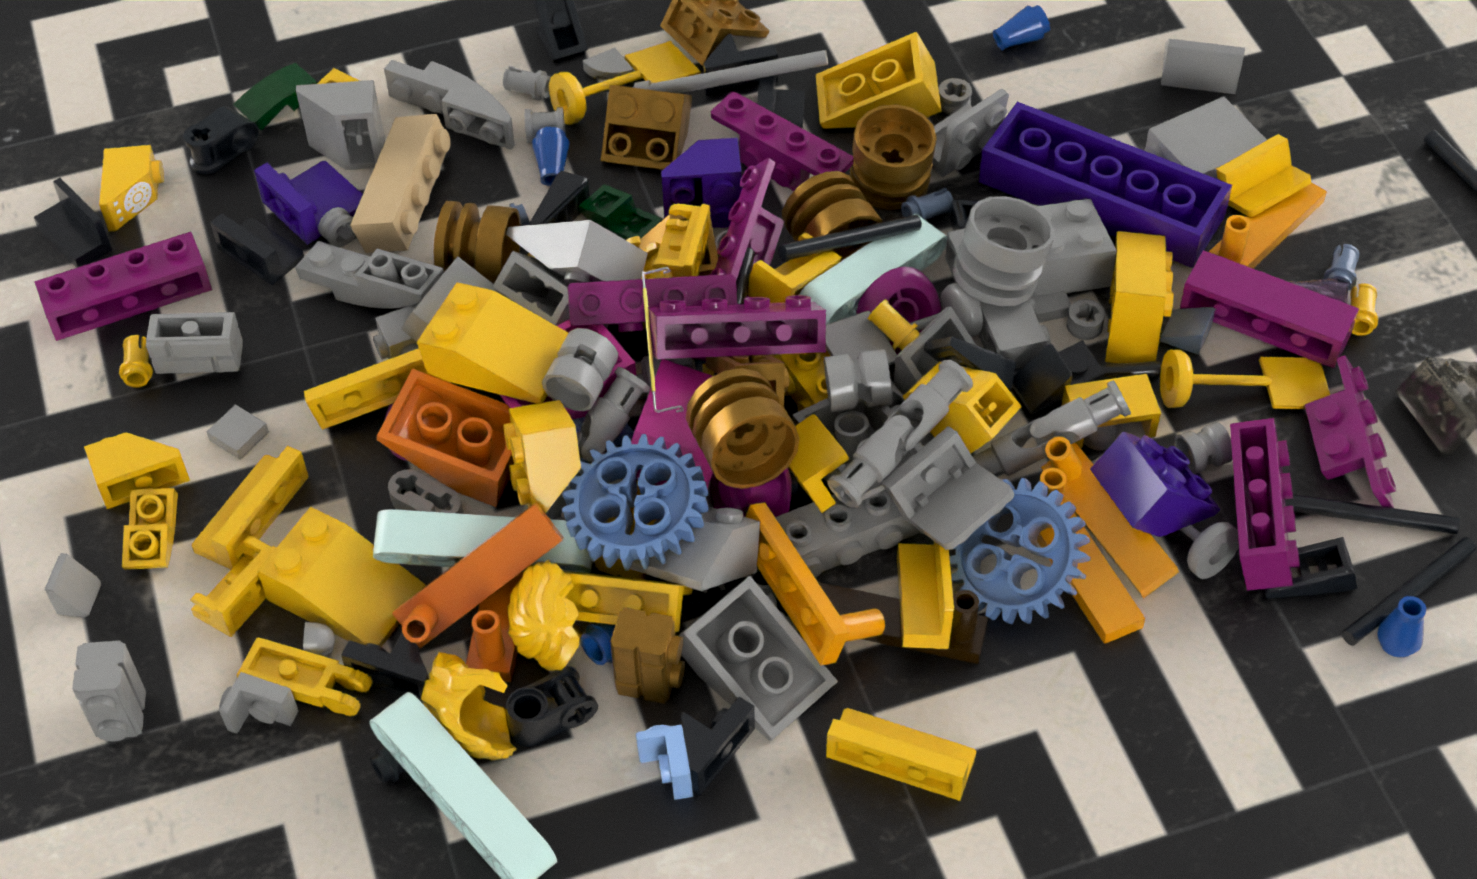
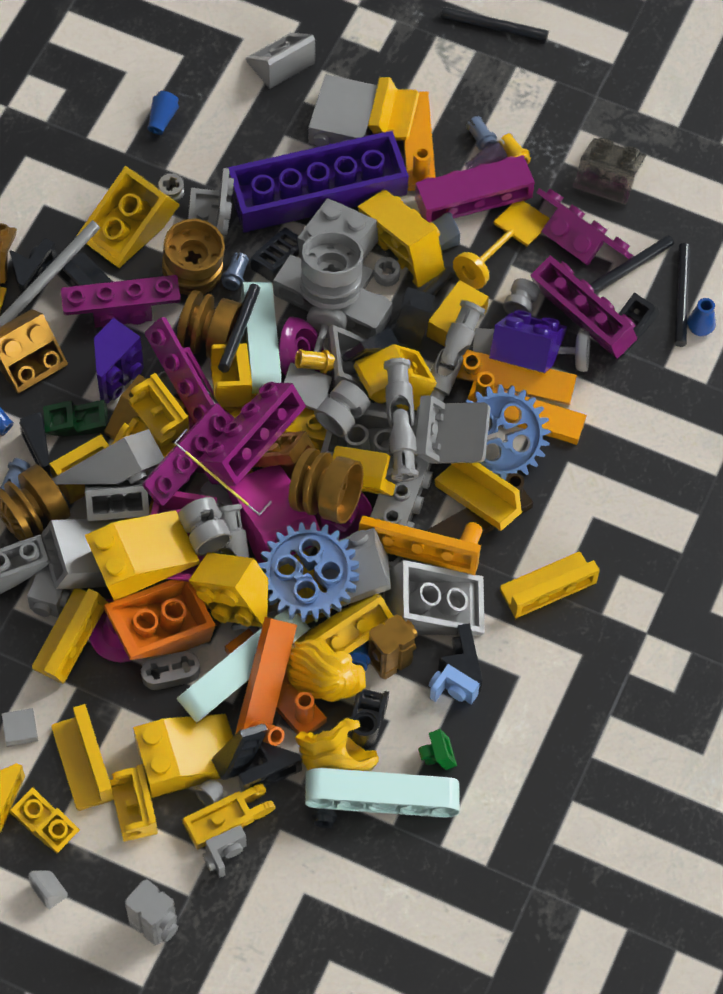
camera: 50 degrees left, 10 degrees up
(374, 616) = (239, 751): none -> black slope
(577, 808) = (438, 751): none -> green tile

